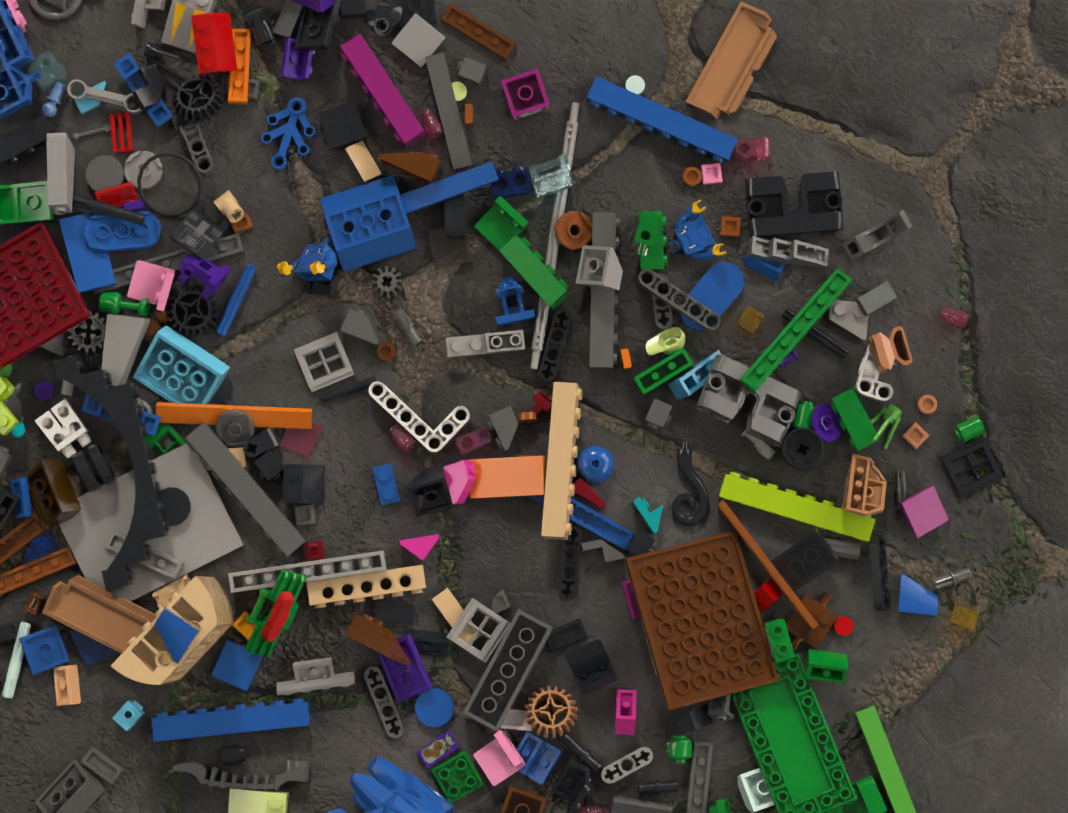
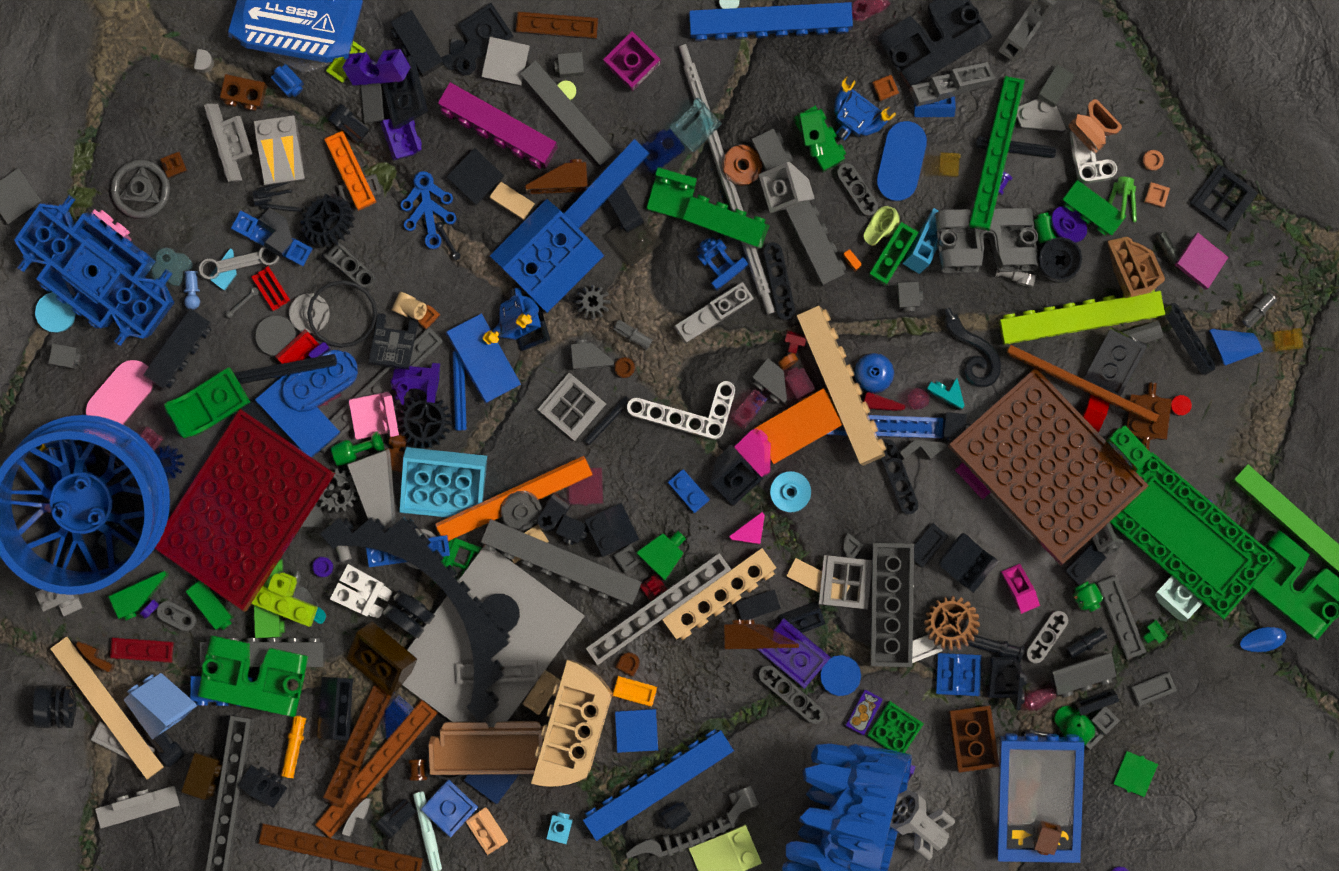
camera: 30 degrees left, 0 degrees up
(21, 489) = (348, 669): blue plate -> none
(60, 172) = (234, 355): light grey slope -> none
(175, 633) = (576, 722): blue slope -> none
(214, 43) = (316, 160): red slope -> none
(267, 286) = (483, 362): none -> blue tile
(283, 610) = (654, 654): green piece -> none
(314, 675) = (715, 702): light grey bracket -> none
(336, 526) = (663, 553): none -> green torso
(403, 439) = (682, 440): clear pink cone -> none
(430, 124) = (557, 133): clear pink cone -> none
(462, 524) = (801, 489): none -> medium azure dish
(468, 114) = (587, 104): dark orange tile -> none
(499, 759) = (926, 692): bright pink bracket -> none
(527, 440) = (799, 382): none -> clear pink brick
(621, 505) = (918, 399): none -> clear pink piece
(674, 291) = (883, 176): dark grey beam -> none
(692, 176) = (826, 59): dark orange tile -> none
(711, 173) = (843, 47): bright pink tile -> none
(826, 666) = (1185, 450): green brick -> none
(955, 317) = (1137, 66): clear pink cone -> none
(969, 429) = (1204, 163): green brick -> none

